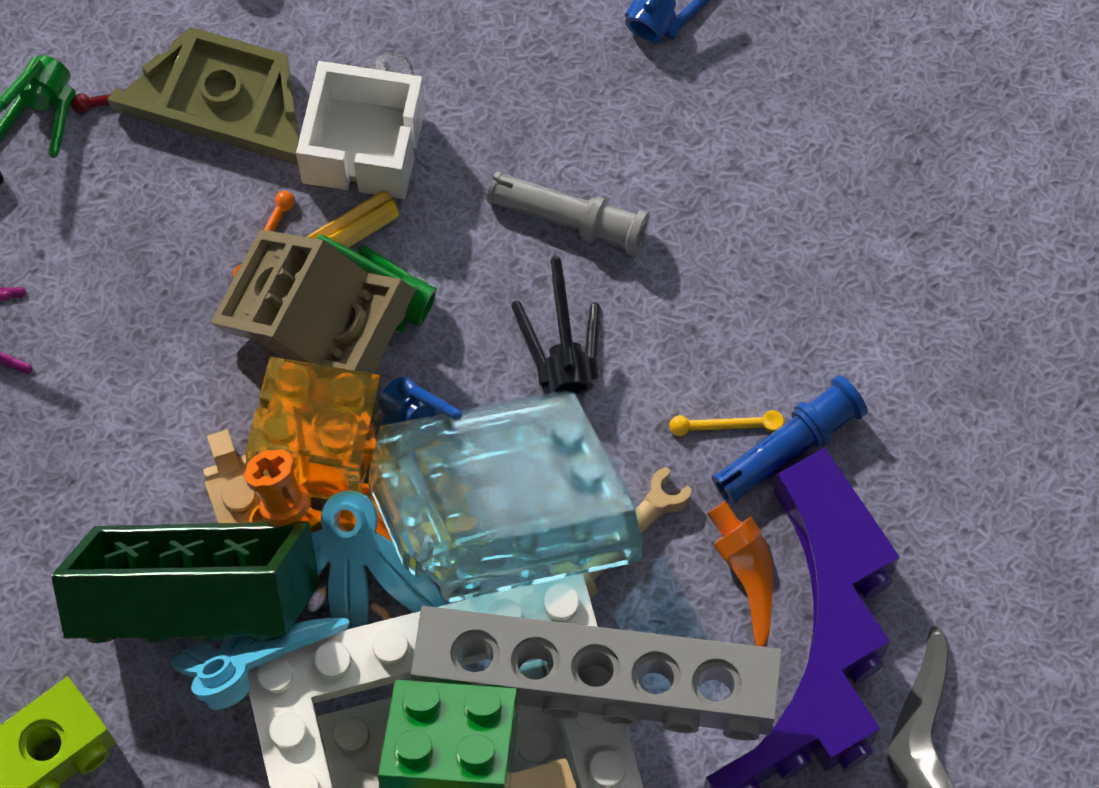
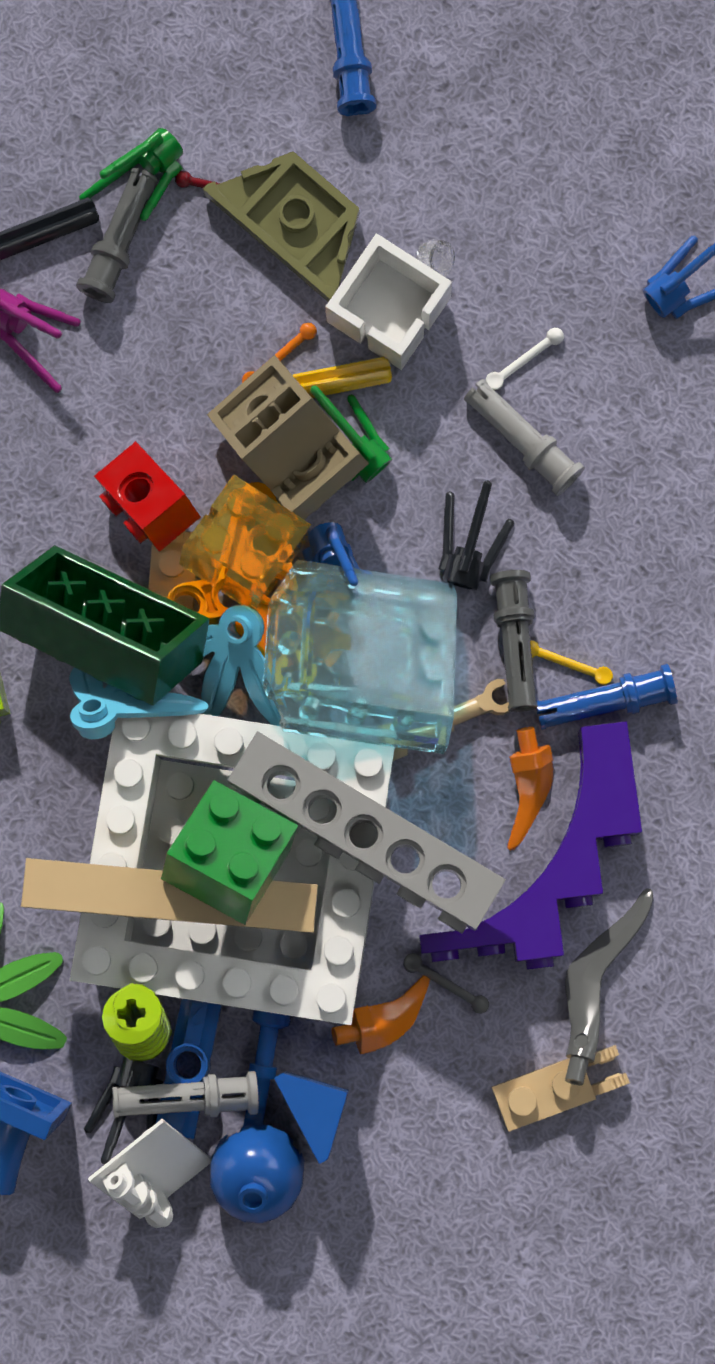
camera: 30 degrees right, 15 degrees up
(32, 203) = (111, 253): none -> dark grey pin
(179, 432) = (147, 497): none -> red brick
(277, 486) = (186, 594): orange bush -> none
(554, 104) = (553, 337): none -> white hinge
(648, 397) = (514, 619): none -> dark grey pin

